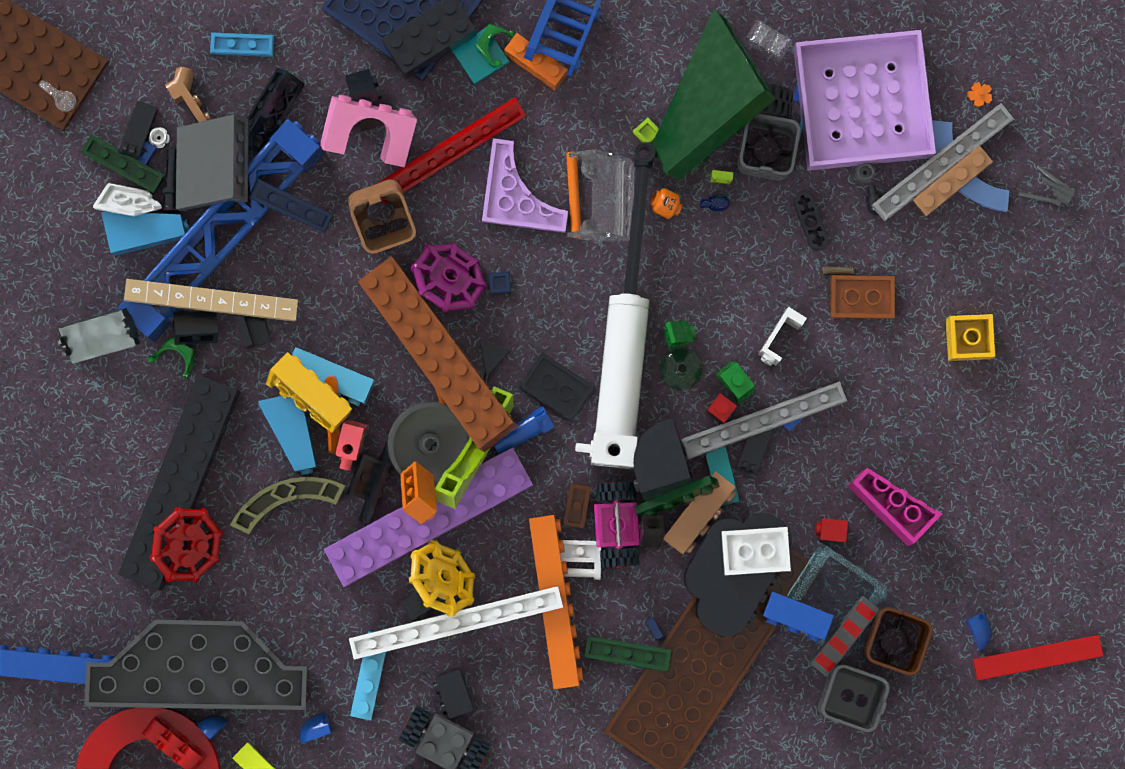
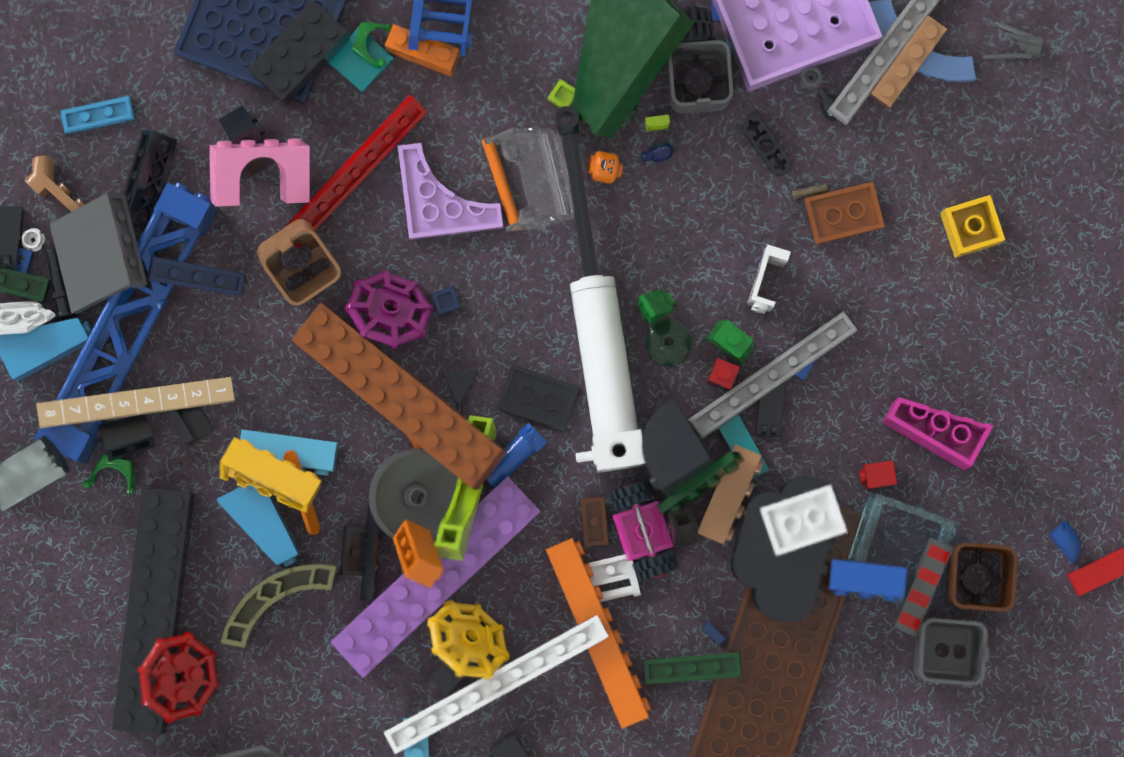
camera: 10 degrees left, 0 degrees up
(353, 434) = (329, 507): coral torso -> none

